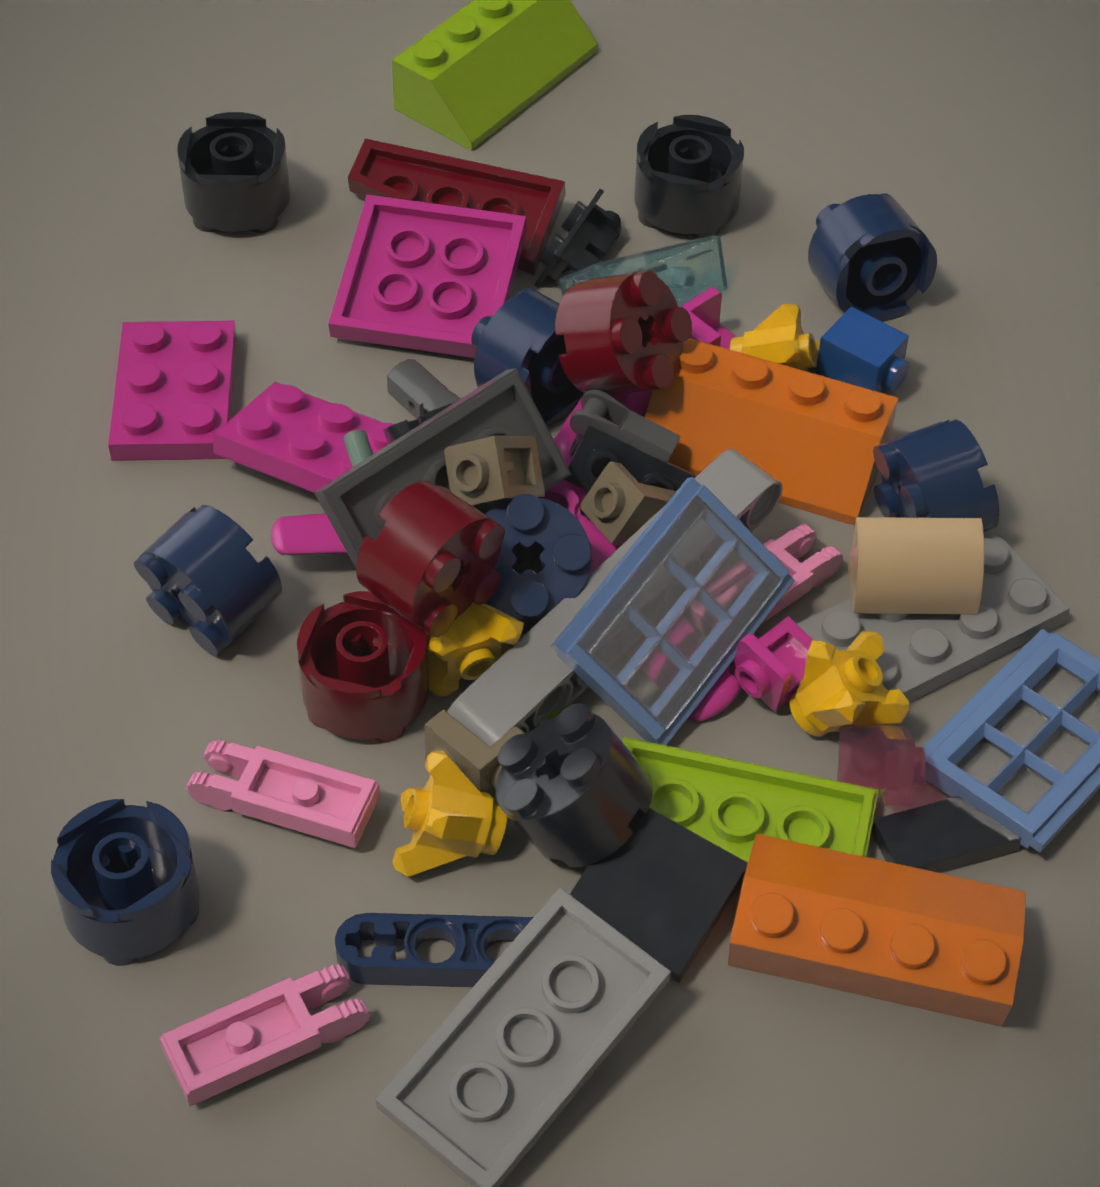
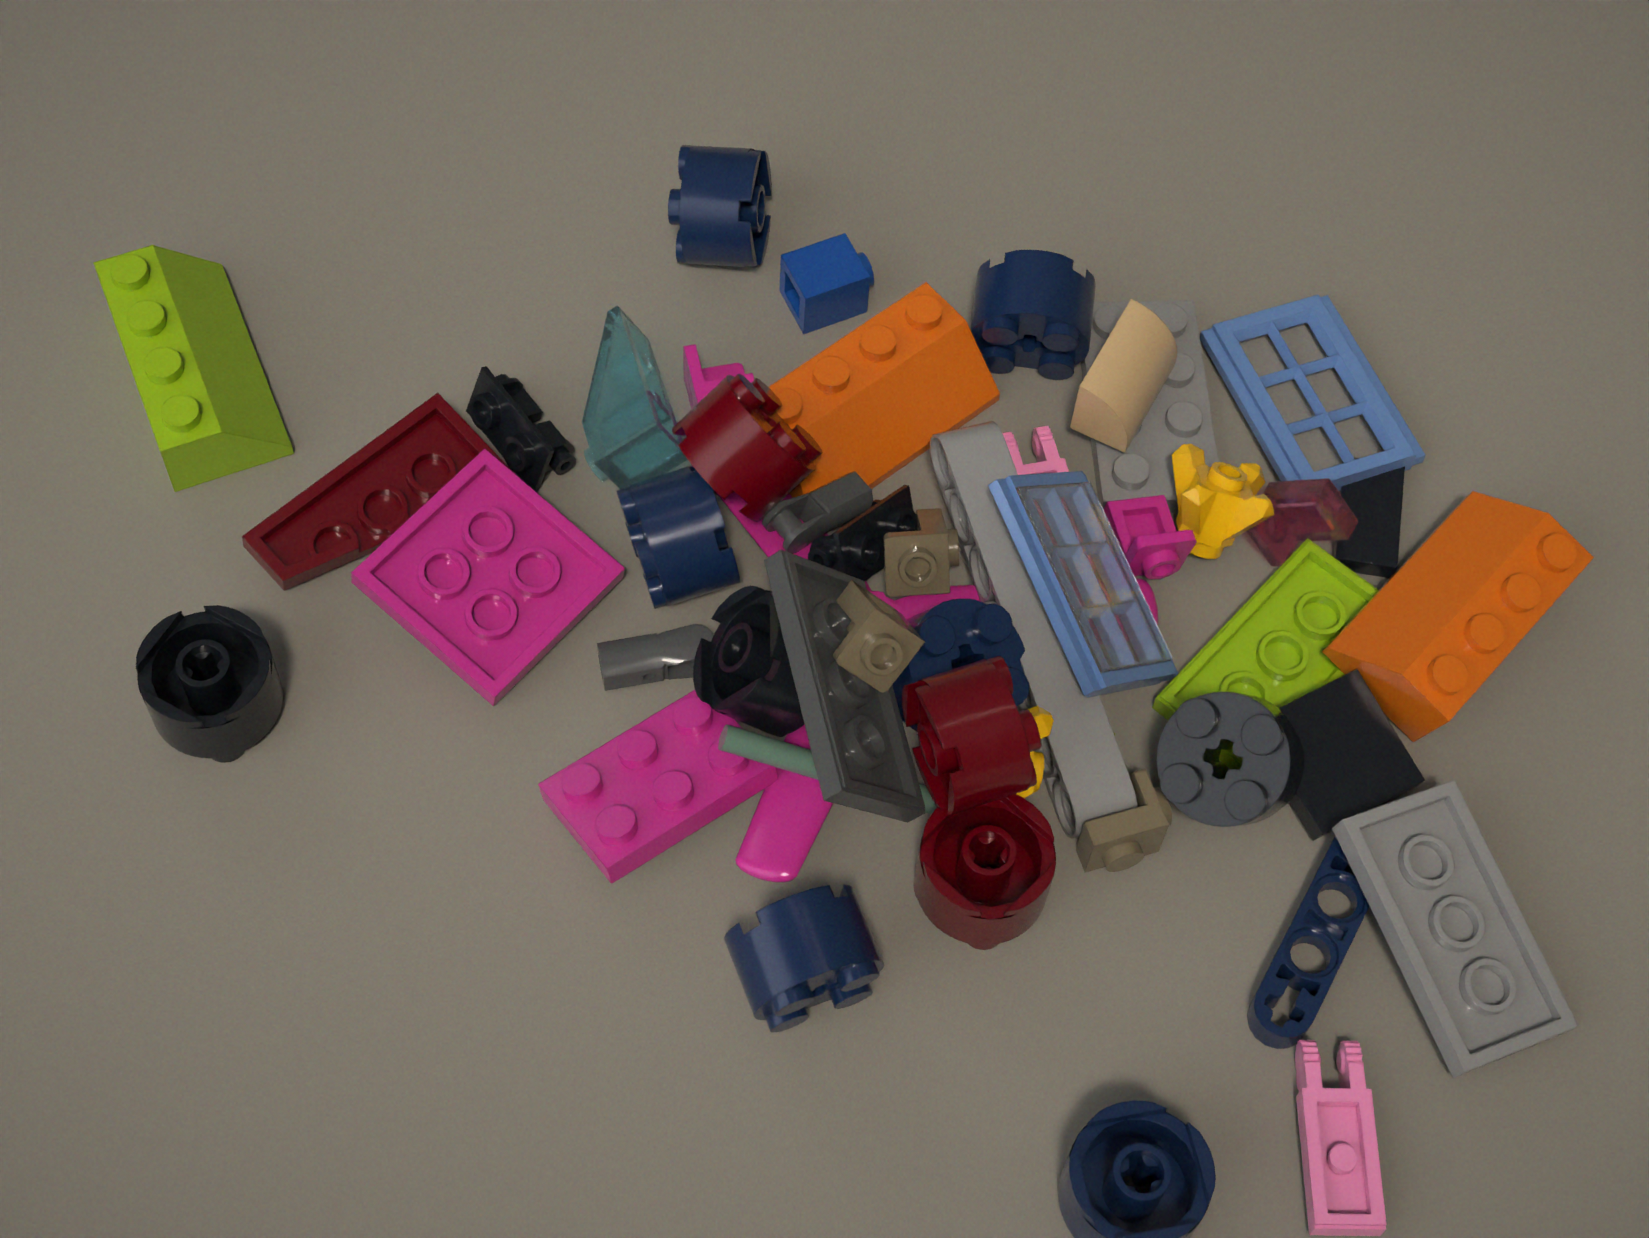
camera: 65 degrees left, 10 degrees up
(172, 389) = (477, 886): dark pink plate -> none
(286, 791) = (1081, 1001): bright pink hinge -> none
(447, 819) = (1187, 882): yellow rock -> none
(688, 176) = (505, 287): black brick -> none
(780, 340) = (783, 338): yellow rock -> none

